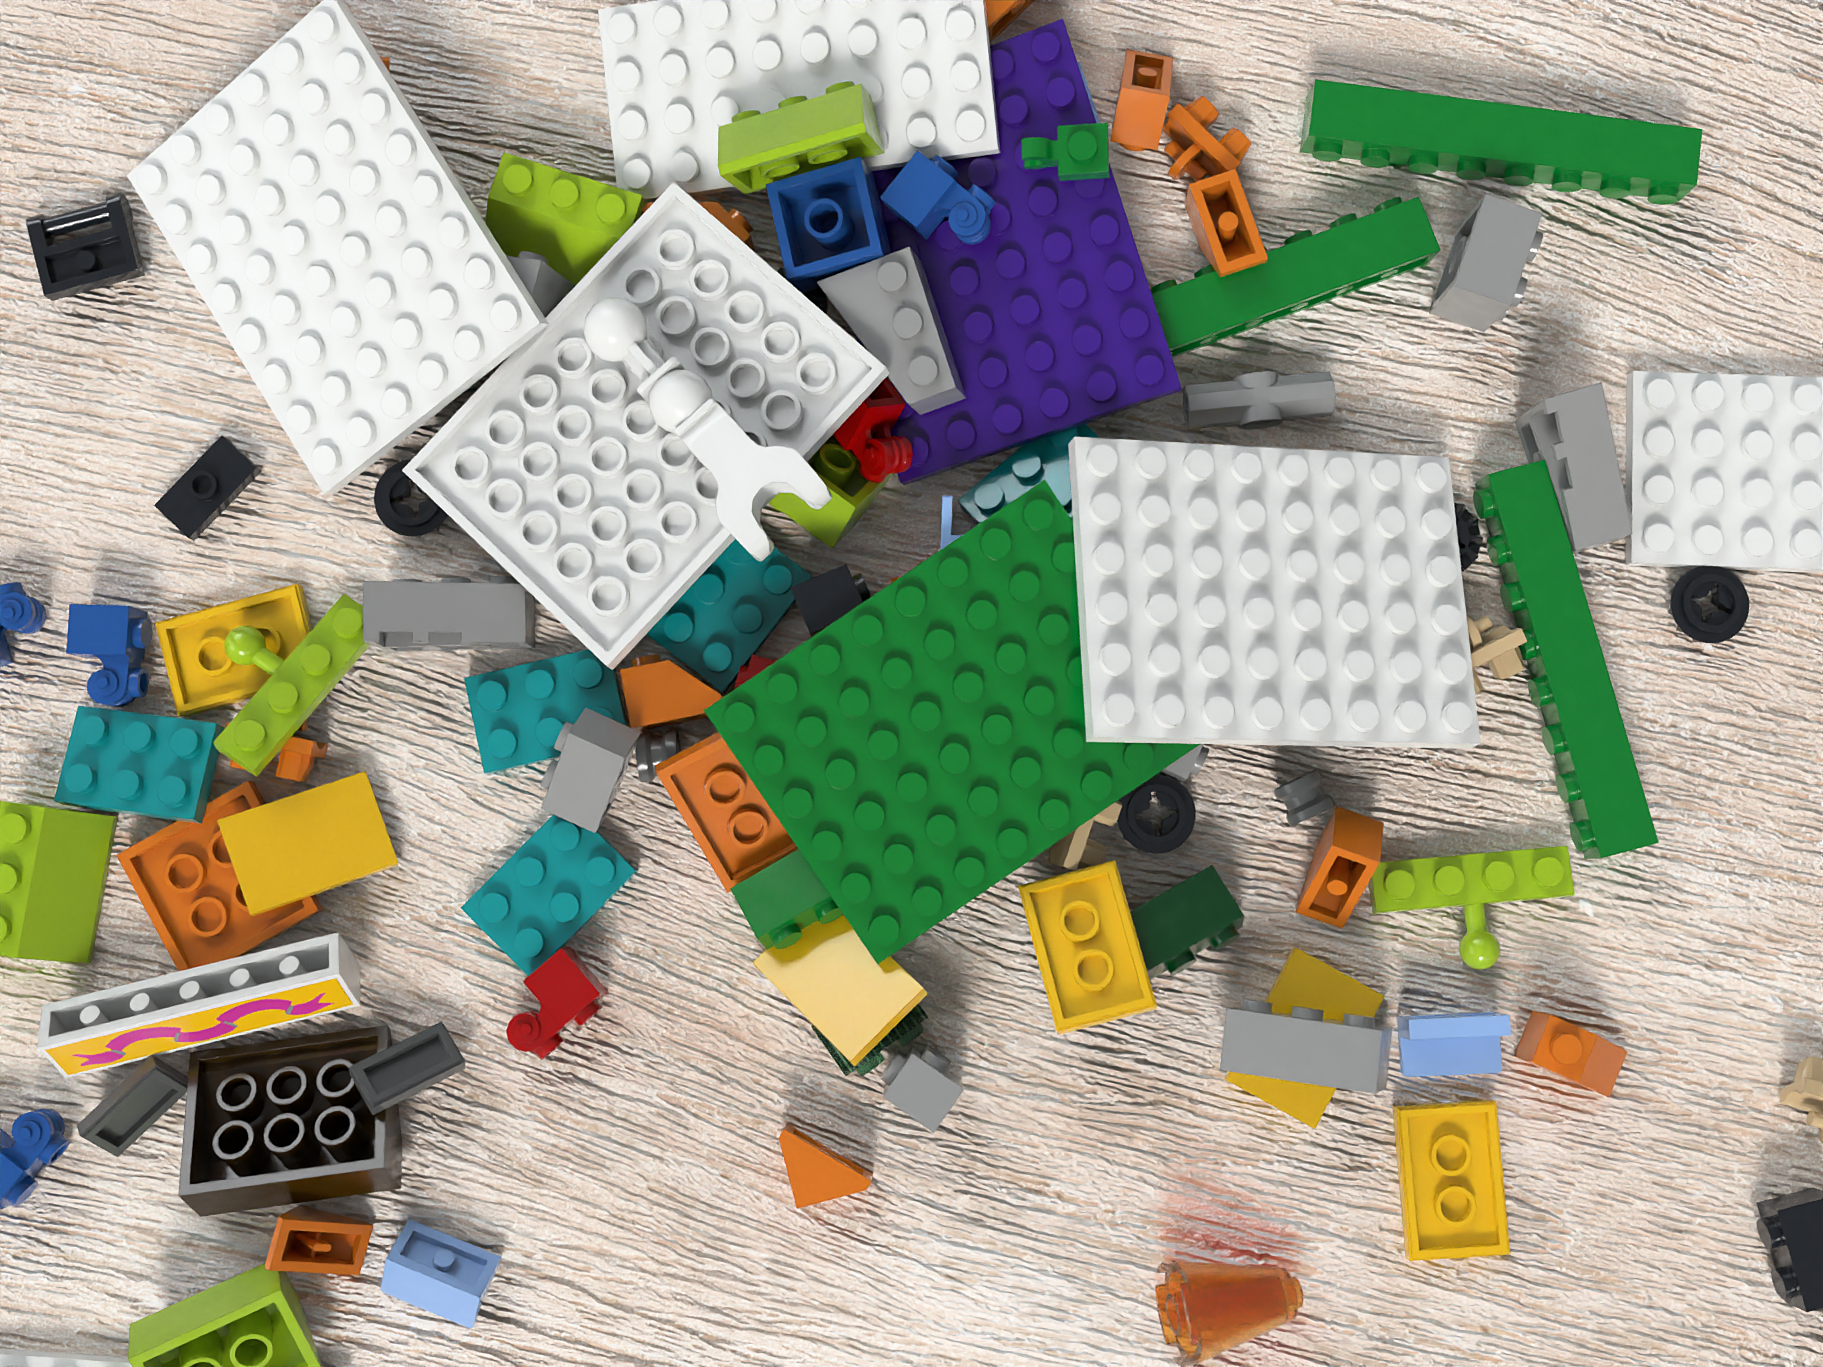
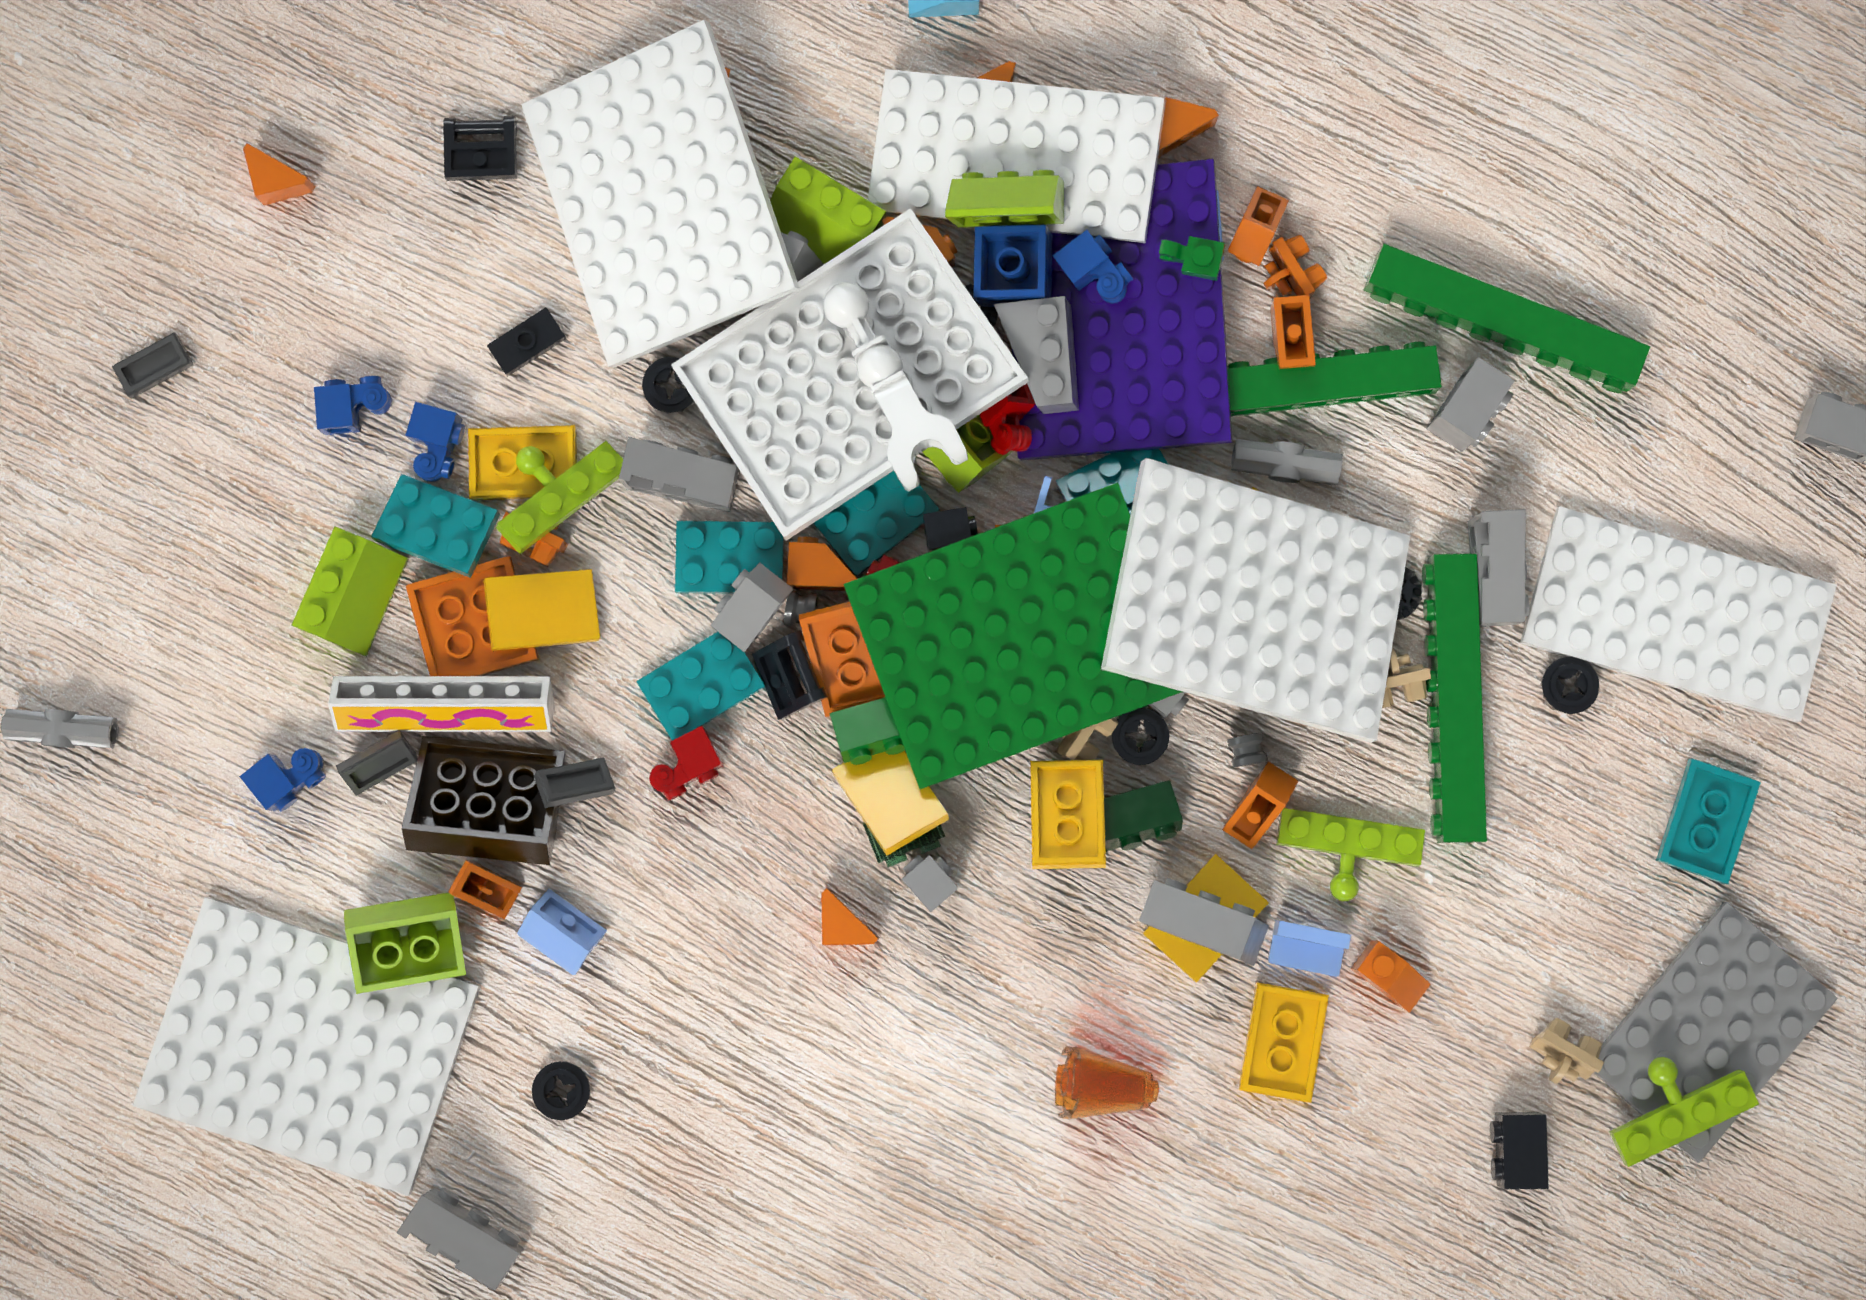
camera: 10 degrees right, 0 degrees up
(656, 857) = (781, 677): none -> black plate

